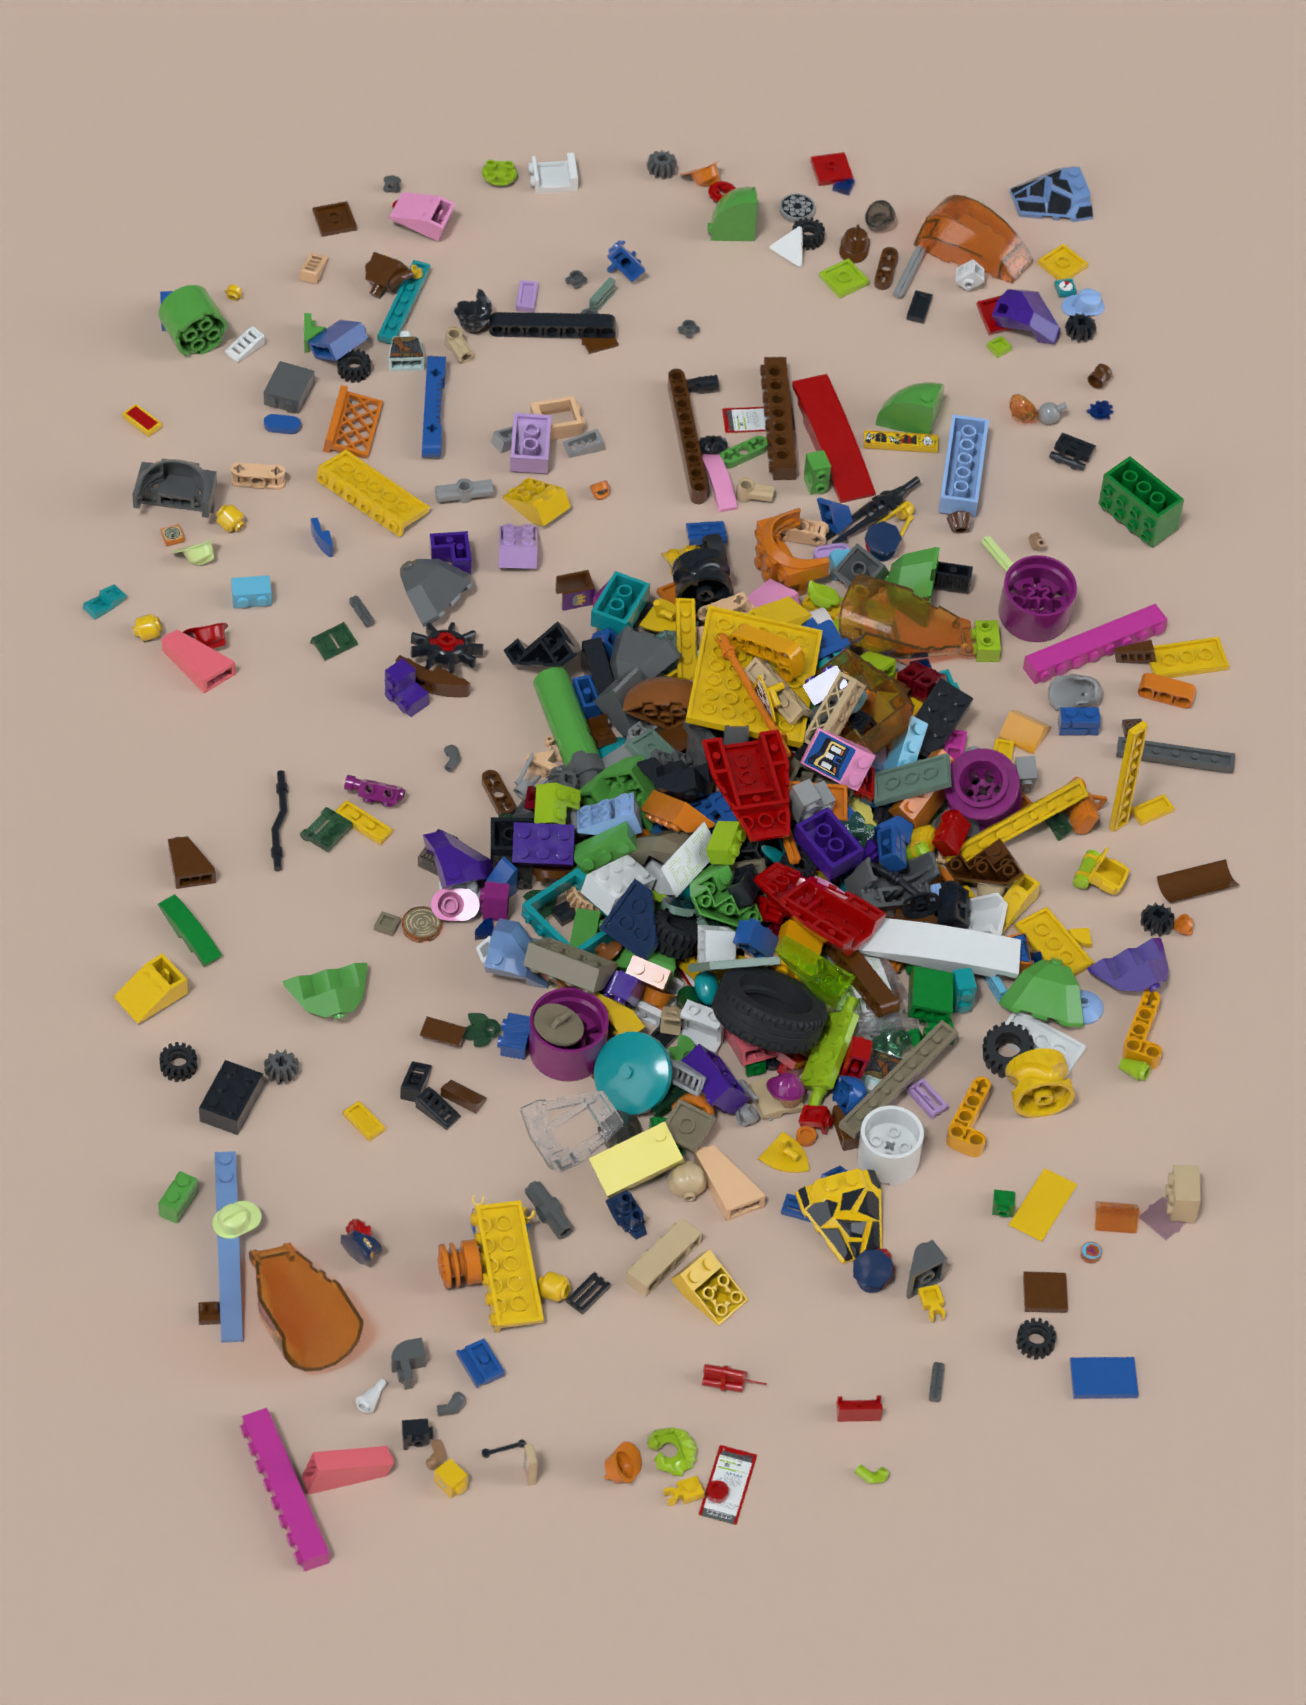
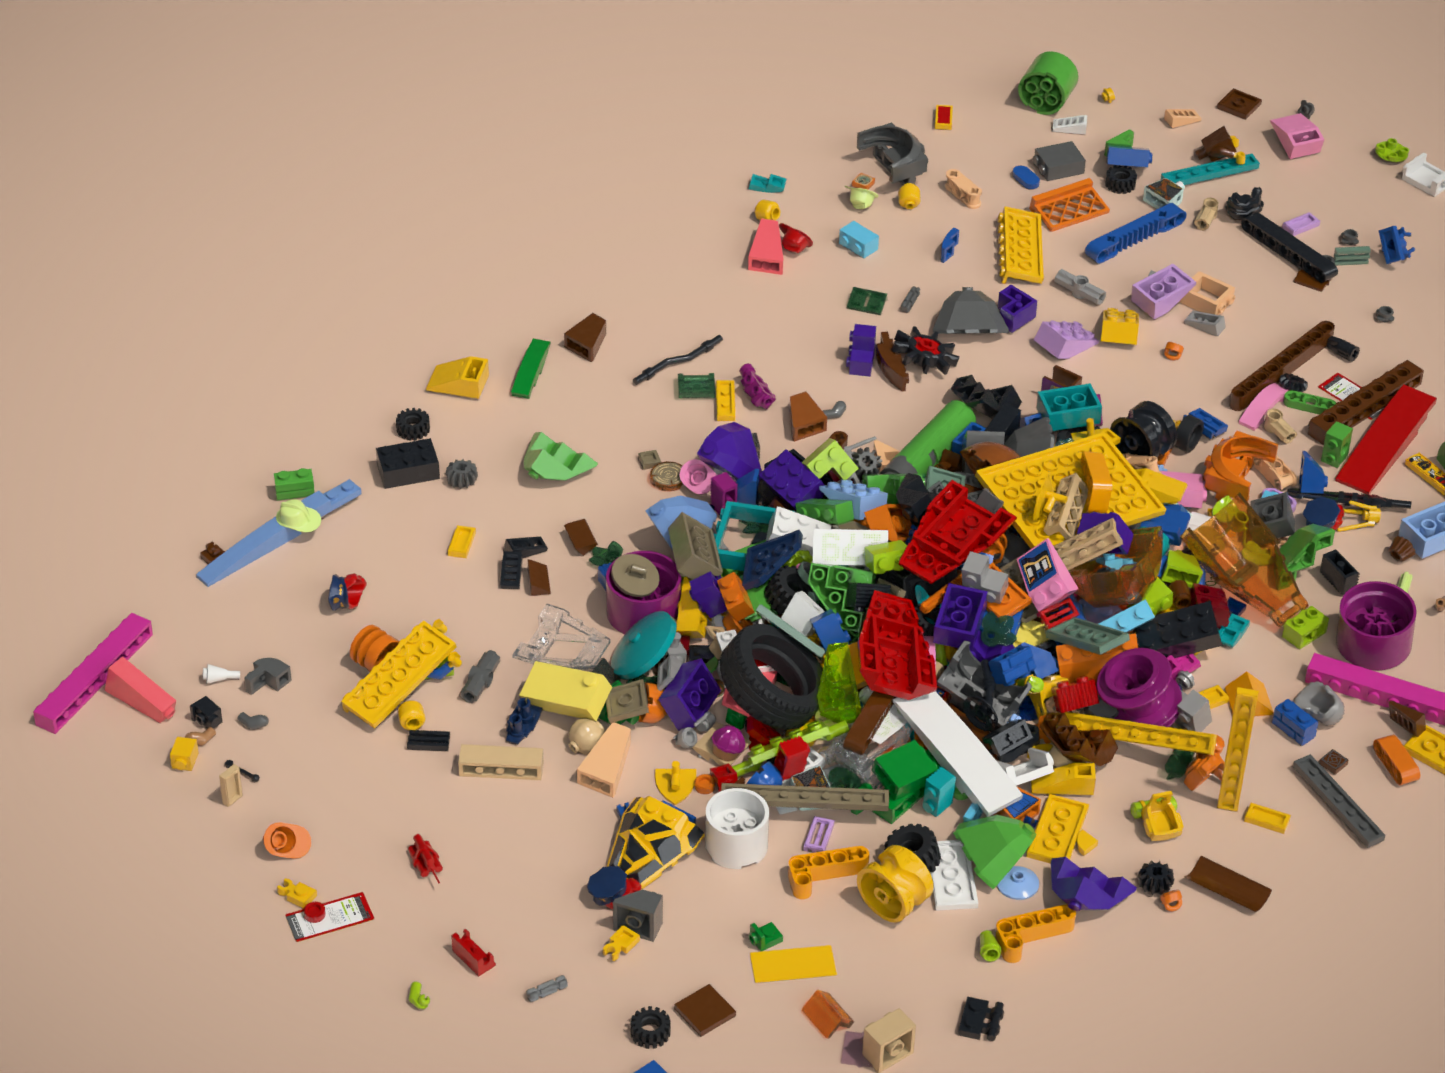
camera: 55 degrees right, 10 degrees down
(304, 1309) = (242, 586): clear orange windscreen -> none
(441, 782) = (806, 417): none -> dark orange slope
(480, 1363) = (304, 715): blue plate -> none
(608, 950) = (736, 566): dark orange dish -> none
(685, 1445) = (337, 869): lime piece -> none
(709, 1287) = (499, 802): yellow slope -> none
(729, 652) = (1067, 462): orange bar -> none
(1091, 1252) = (775, 1018): clear orange tile -> none
(1194, 1128) = (974, 1016): none -> black plate

